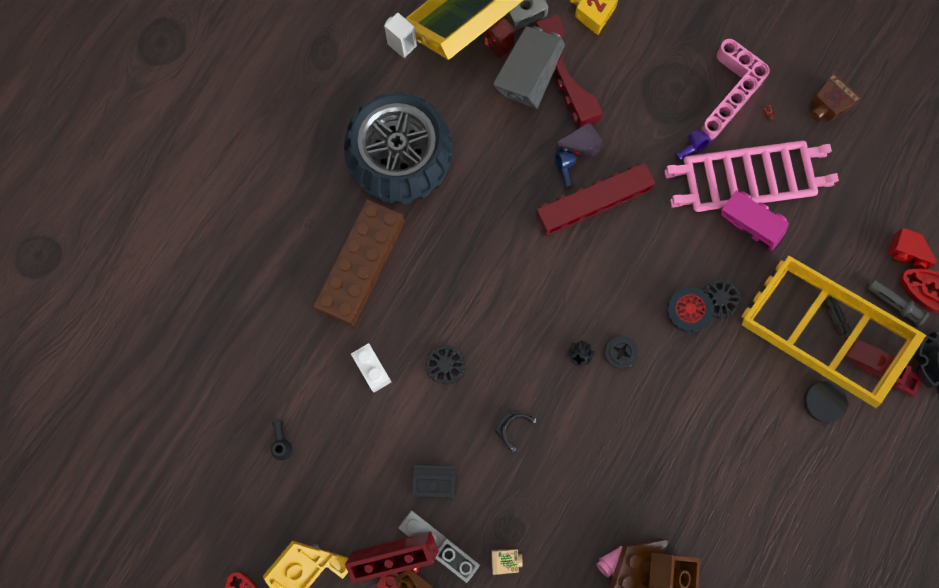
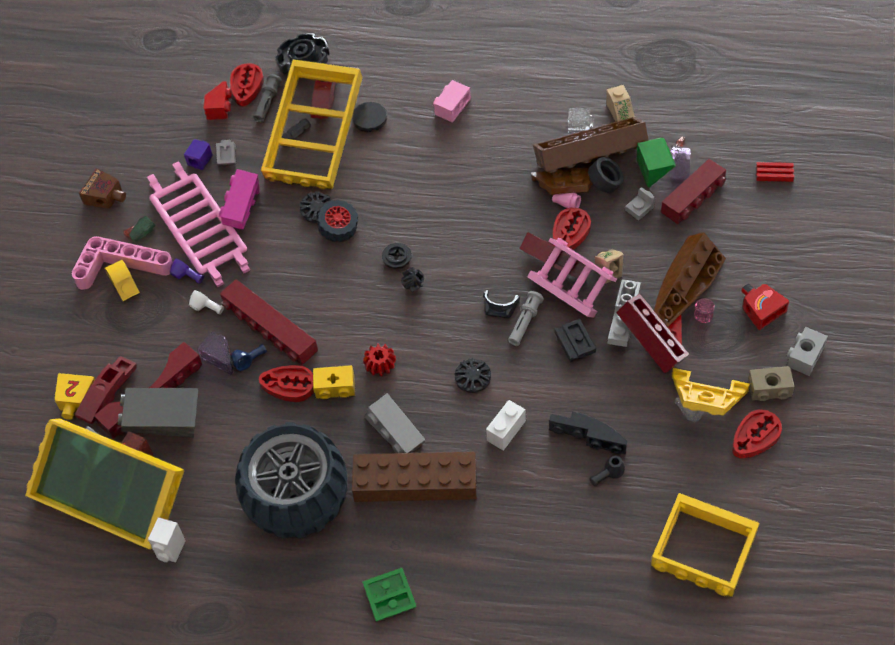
camera: 110 degrees left, 20 degrees down
(131, 467) = (713, 515): none -> yellow window
(264, 199) = (389, 594): none -> green slope
(318, 449) = (597, 433): none -> black slope
(419, 264) = (394, 425): none -> light grey wedge
(490, 452) = (528, 311): none -> light grey pin
(492, 495) = (556, 286): none -> bright pink fence
(496, 221) = (334, 382): none -> yellow brick
(501, 290) = (379, 360): none -> red gear
(508, 192) = (288, 392): none -> red piece
(538, 508) = (542, 249): none -> dark red slope
(584, 540) = (580, 229): none -> red piece
(587, 34) = (104, 387): none -> dark red slope
(651, 147) = (199, 301): none -> white bar
(709, 80) = (122, 280): none -> yellow brick
(766, 123) = (141, 229): none -> clear green cone
(809, 500) = (452, 101): none -> bright pink brick
(834, 233) = (226, 152): none -> light grey bracket
(843, 205) = (198, 154): none -> dark purple brick

